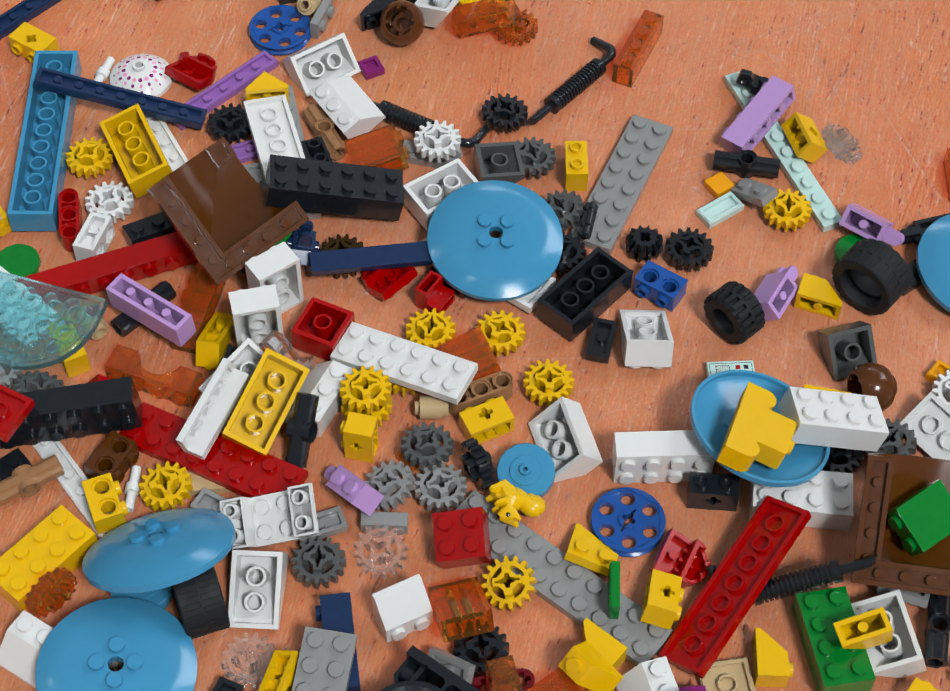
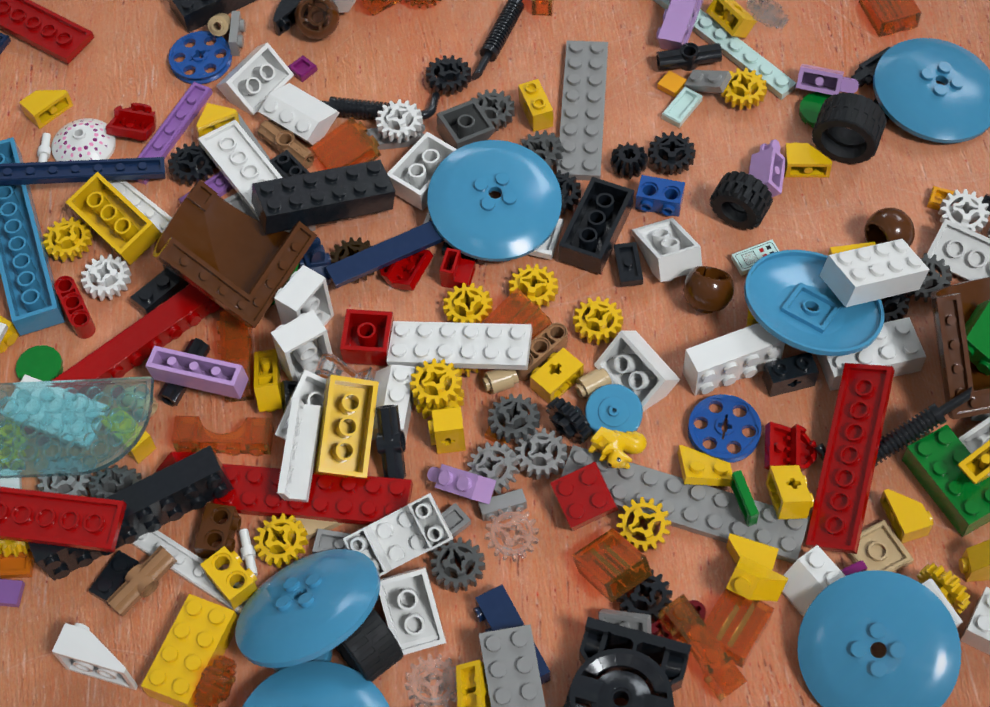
camera: 15 degrees left, 5 degrees up
(94, 236) = (106, 317): white brick -> none
(121, 32) = (45, 105): none -> yellow slope
(402, 609) = (557, 583): white slope -> none
(517, 436) = (591, 381): none -> tan brick
(588, 220) = (570, 154): black axle -> none
(666, 386) = (708, 289): none -> reddish brown wheel
(757, 432) = (817, 307): yellow brick -> none
(846, 347) = (851, 201): dark grey slope -> none

